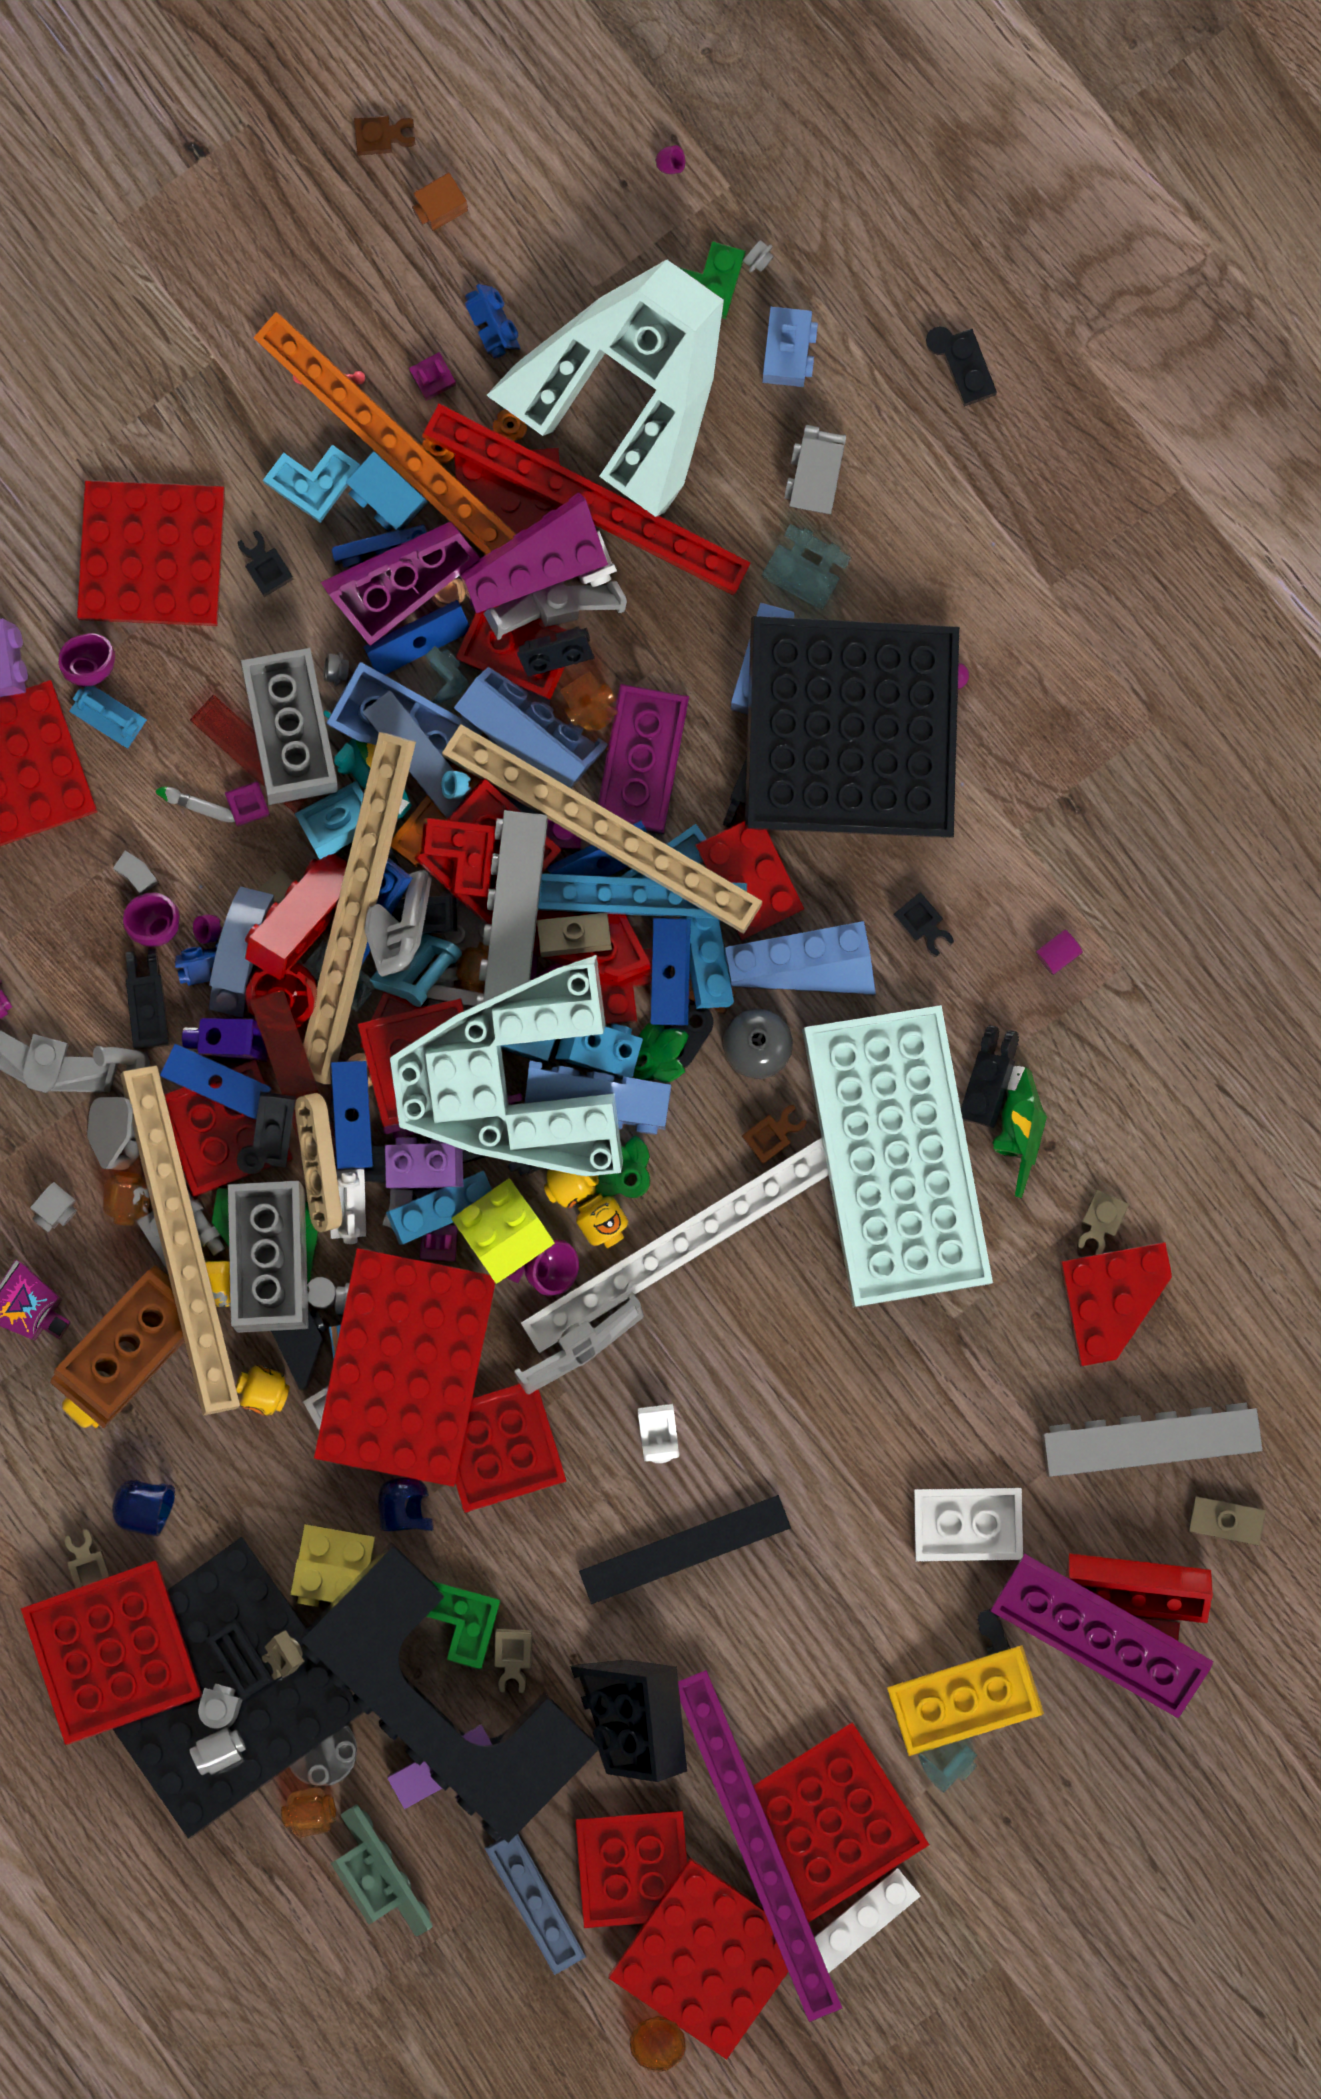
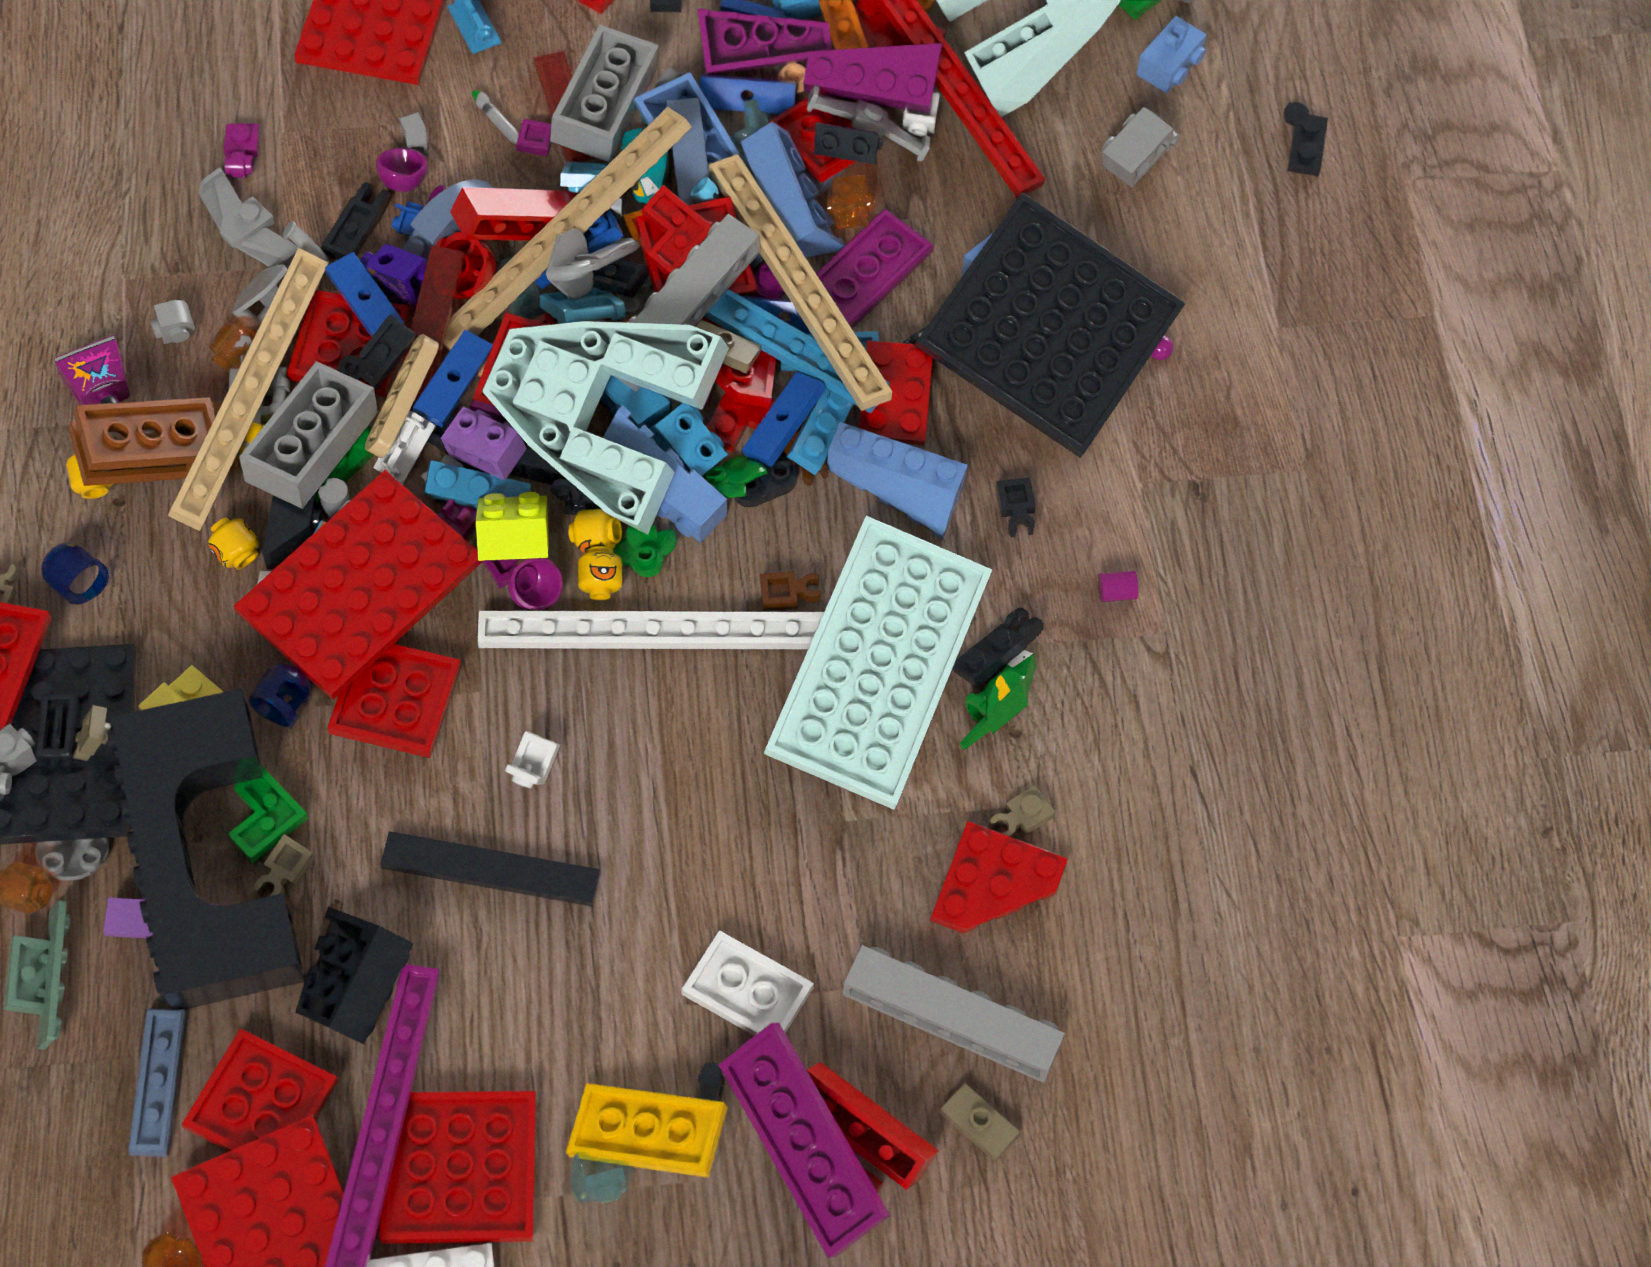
camera: 25 degrees right, 20 degrees down
(581, 1345) = (514, 653): light grey plate -> none
(761, 1060) = (820, 517): dark grey cylinder -> none
(800, 575) = (1078, 210): clear light blue plate -> none

